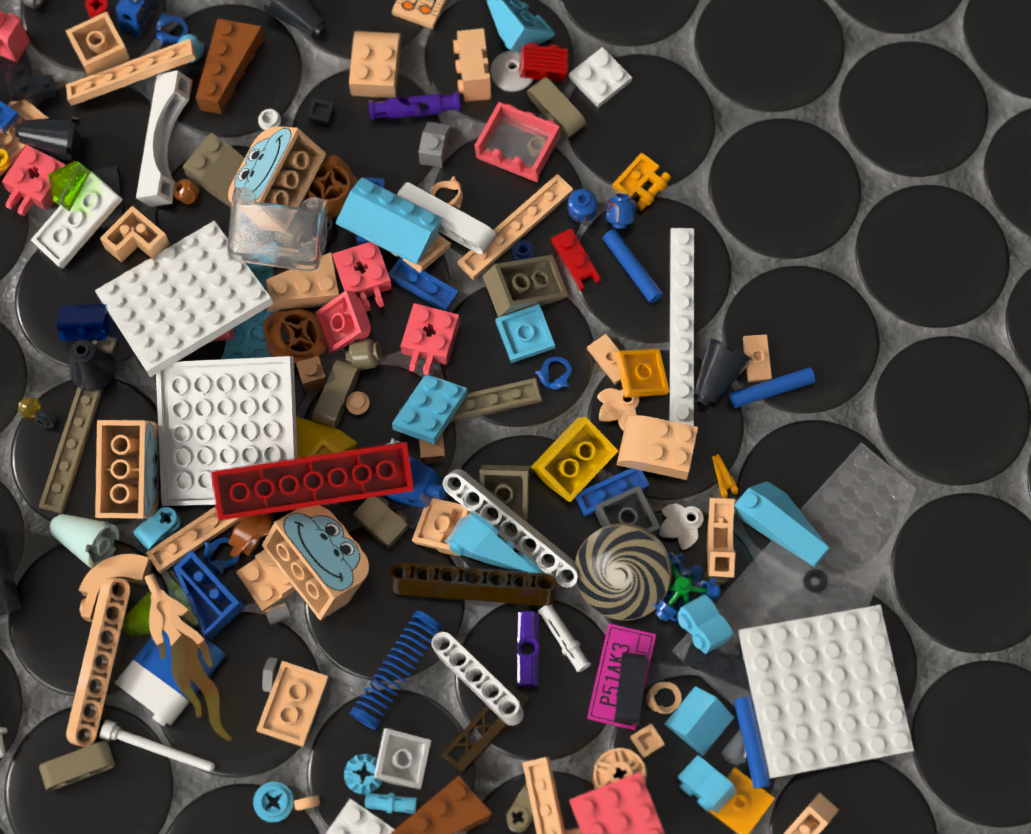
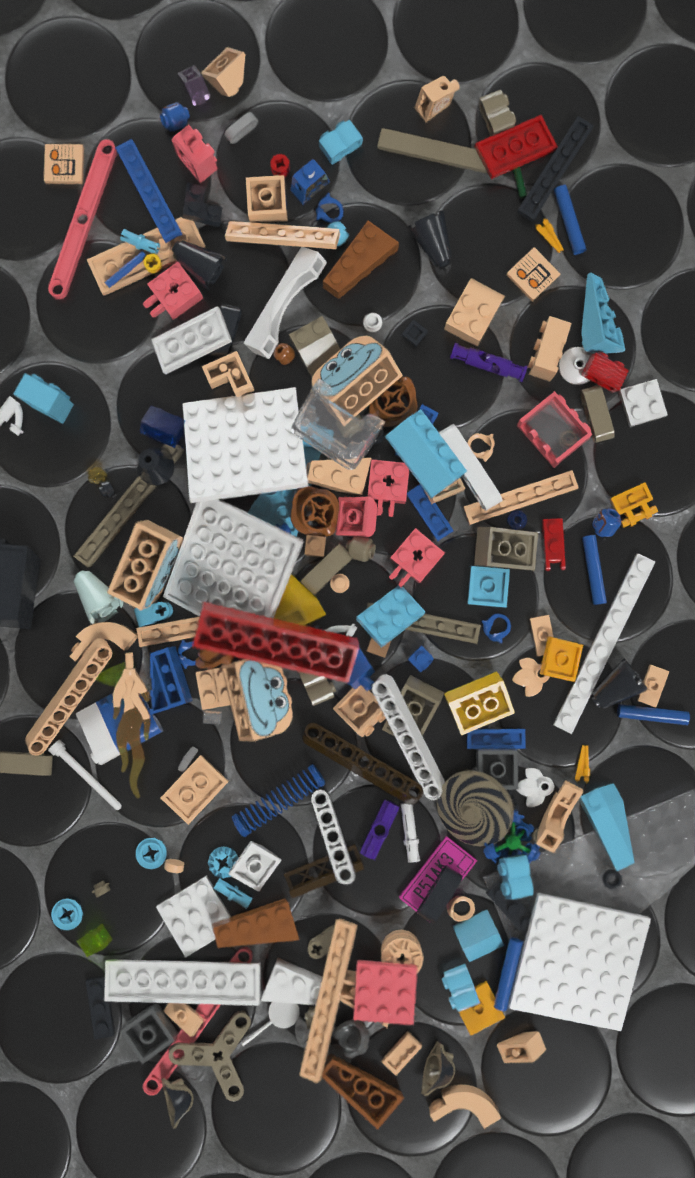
camera: 30 degrees right, 15 degrees up
(67, 184) = (194, 310): clear neon green slope -> none
(433, 144) = (489, 400): light grey slope -> none
(479, 540) = (380, 740): medium azure wedge -> none
(485, 441) = (420, 658): none -> blue brick
(582, 205) = (579, 505): blue head -> none
(647, 740) = (434, 934): light nougat plate -> none
(657, 446) = (545, 725): light nougat brick -> none
(735, 750) = (494, 970): clear cone -> none

